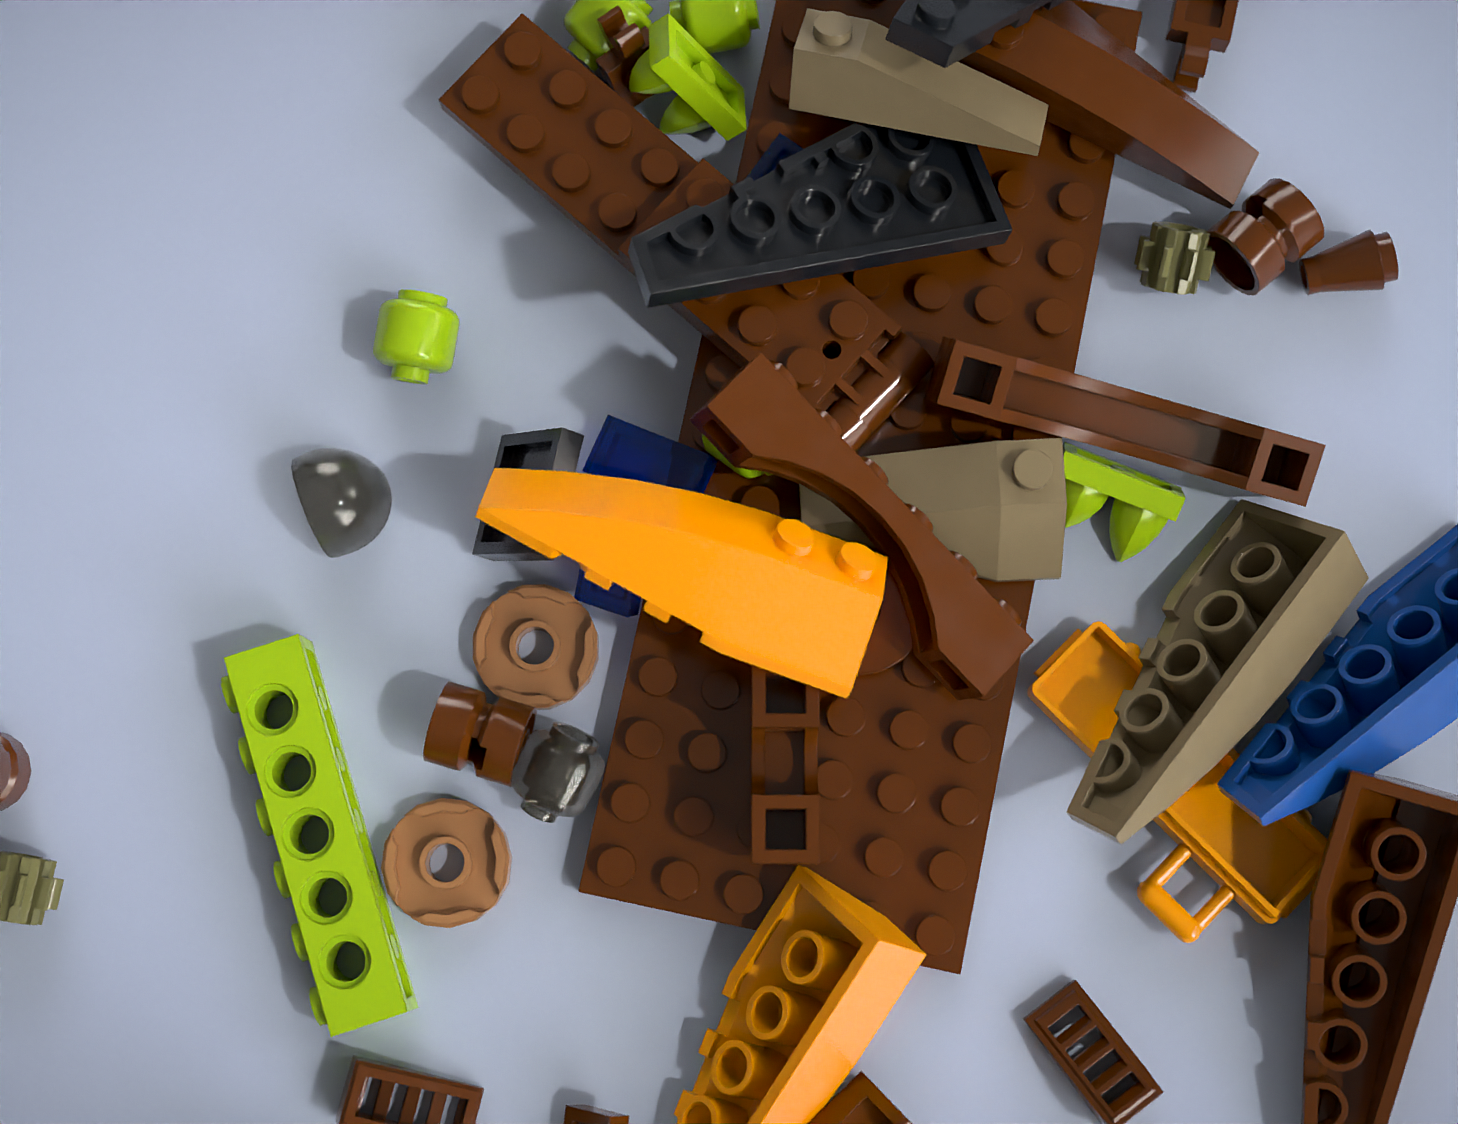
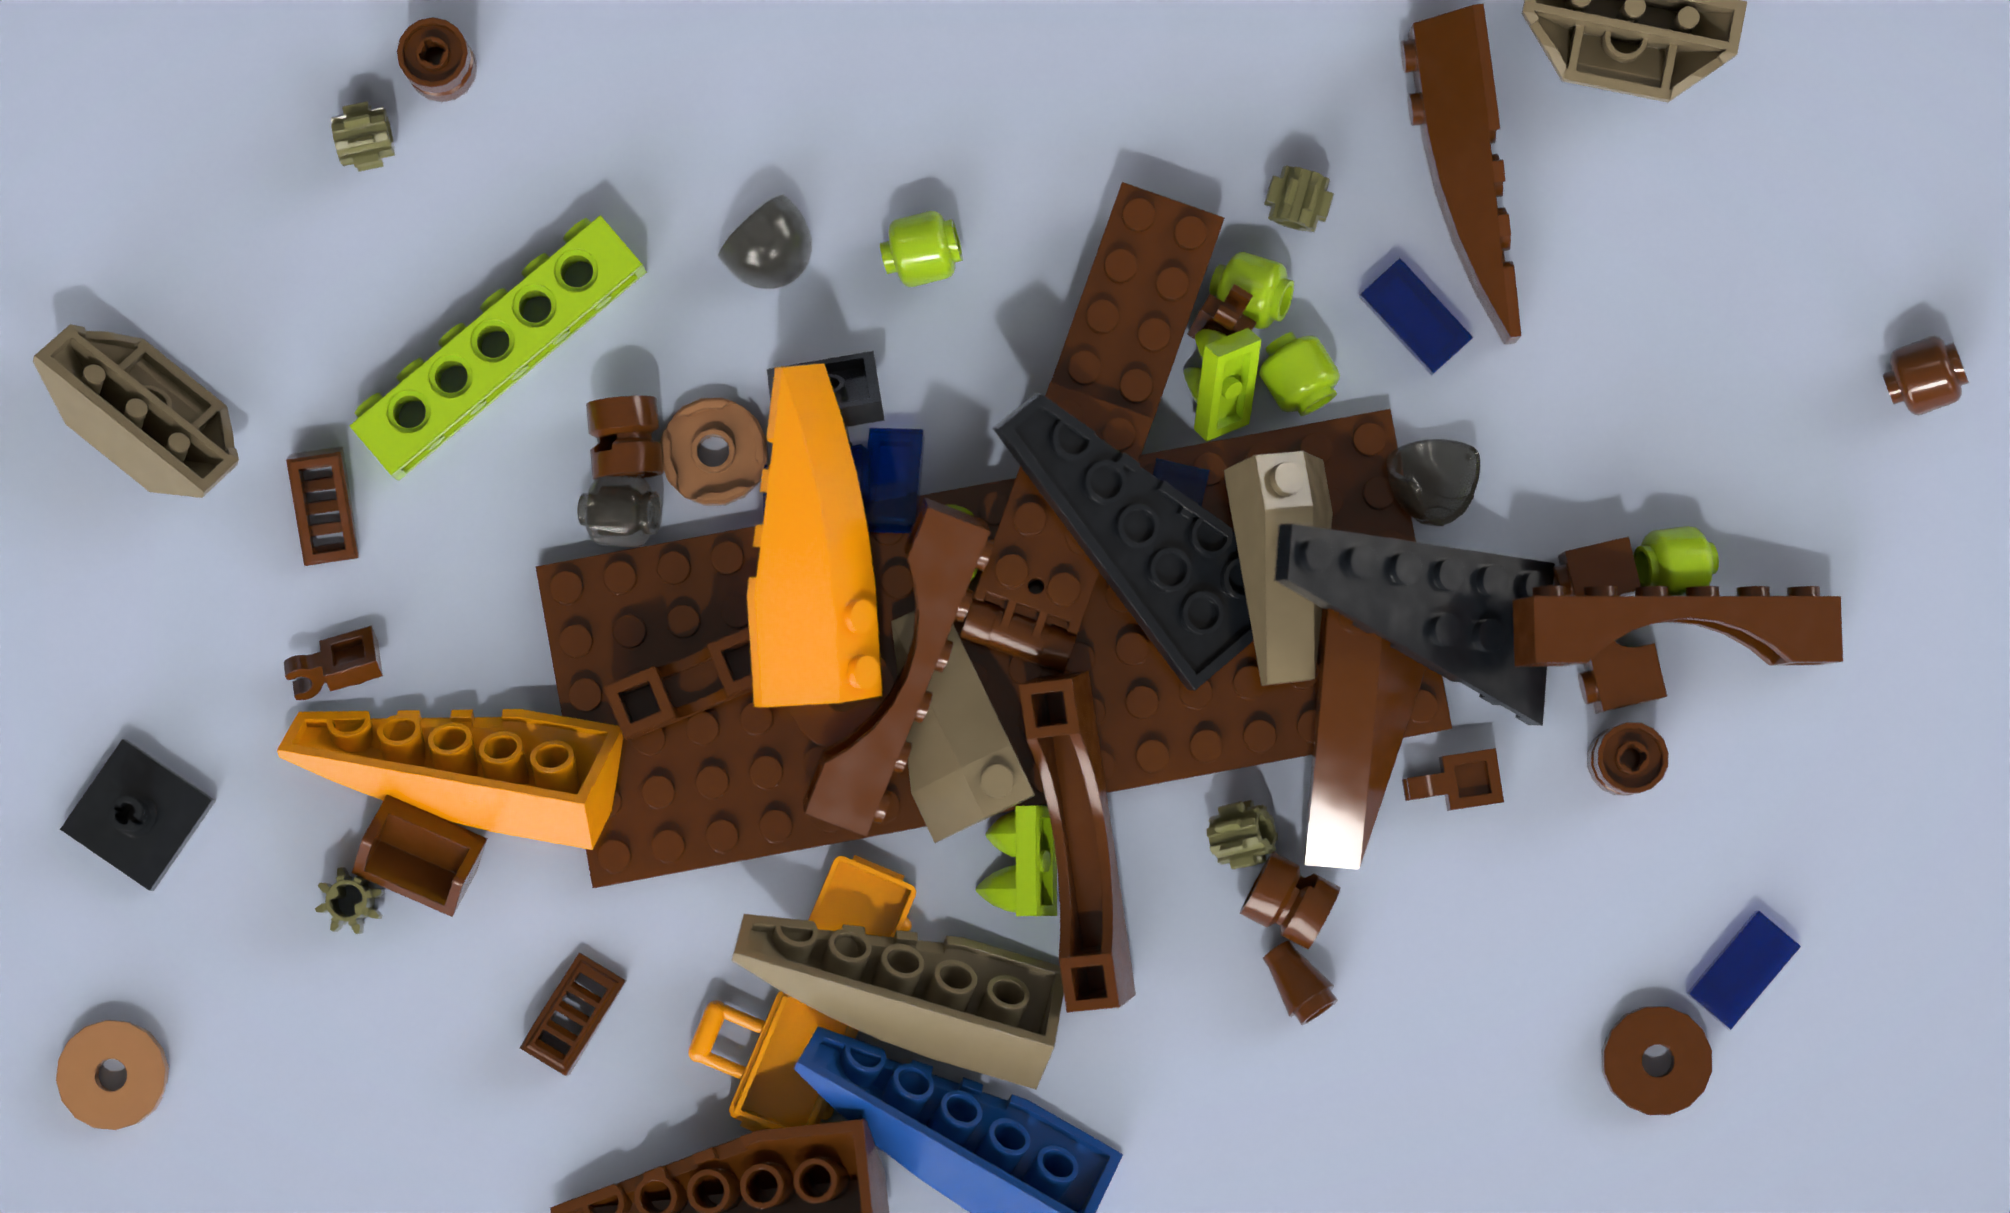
camera: 65 degrees right, 5 degrees up
(408, 868) = (537, 480): medium nougat tile -> none

